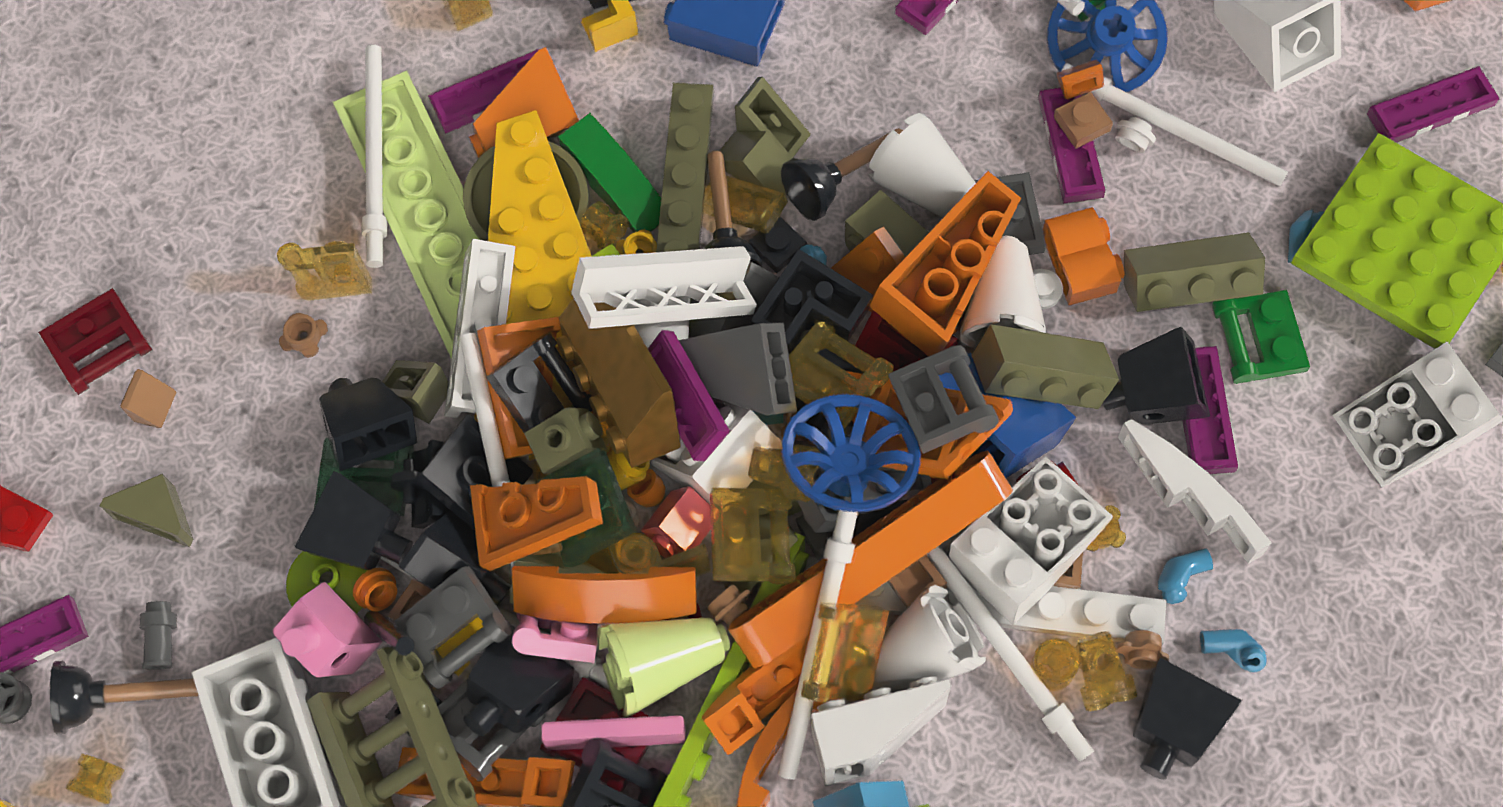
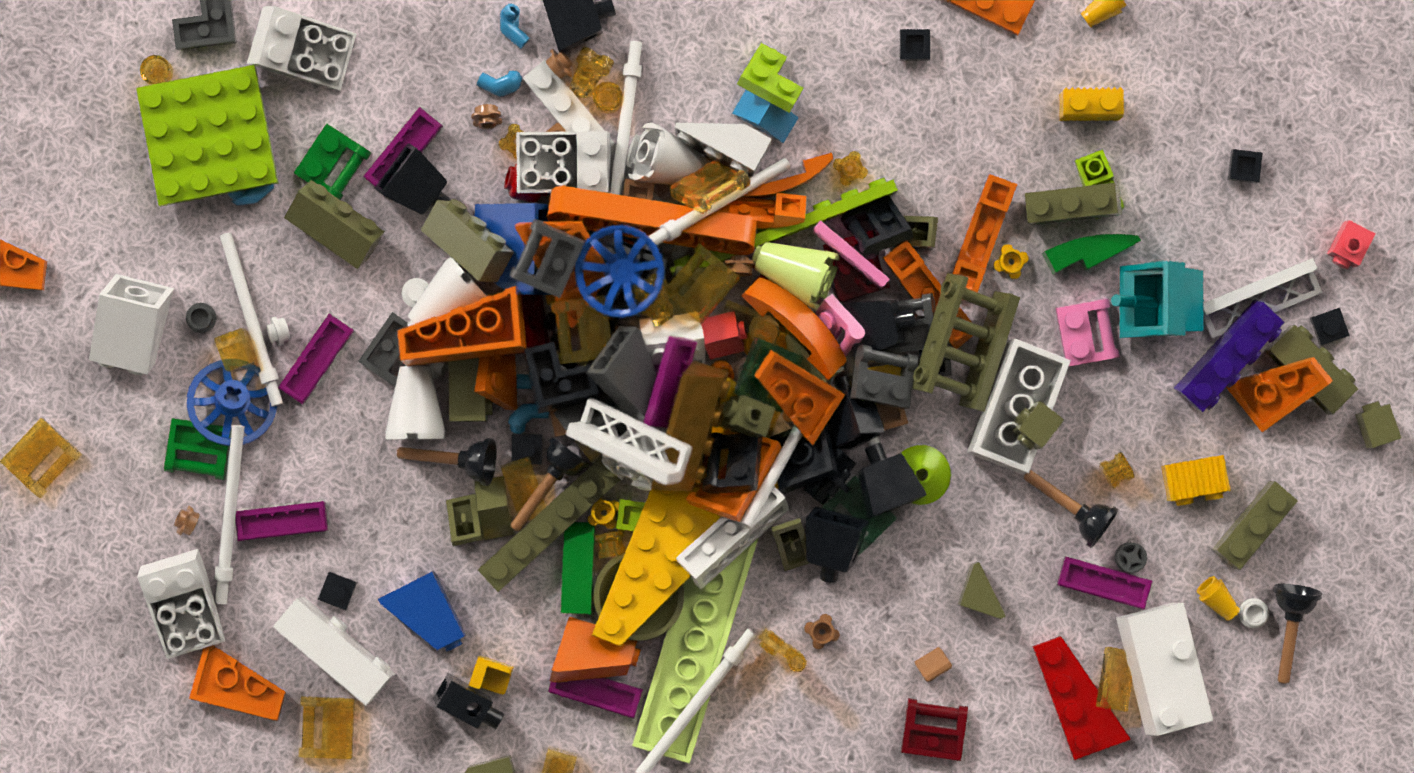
camera: 145 degrees left, 20 degrees up
(157, 628) = (1025, 527): dark grey animal -> none
(219, 726) = (1036, 425): none -> olive brick
(326, 634) = (947, 440): bright pink torso -> none
(375, 589) = (902, 443): orange plate -> none
(389, 632) = (916, 405): black bar -> none
(1081, 79) = (277, 387): orange slope -> none
(1082, 255) = (378, 289): orange brick -> none
(1083, 120) = (300, 362): medium nougat plate -> none
(1156, 79) = (235, 349): none -> clear yellow panel
(1159, 523) = (486, 116): none -> medium nougat plate
(1180, 478) = (454, 127): white slope -> none
(1220, 85) = (201, 317): none -> dark grey plate
(1433, 105) = (104, 198): magenta plate -> none

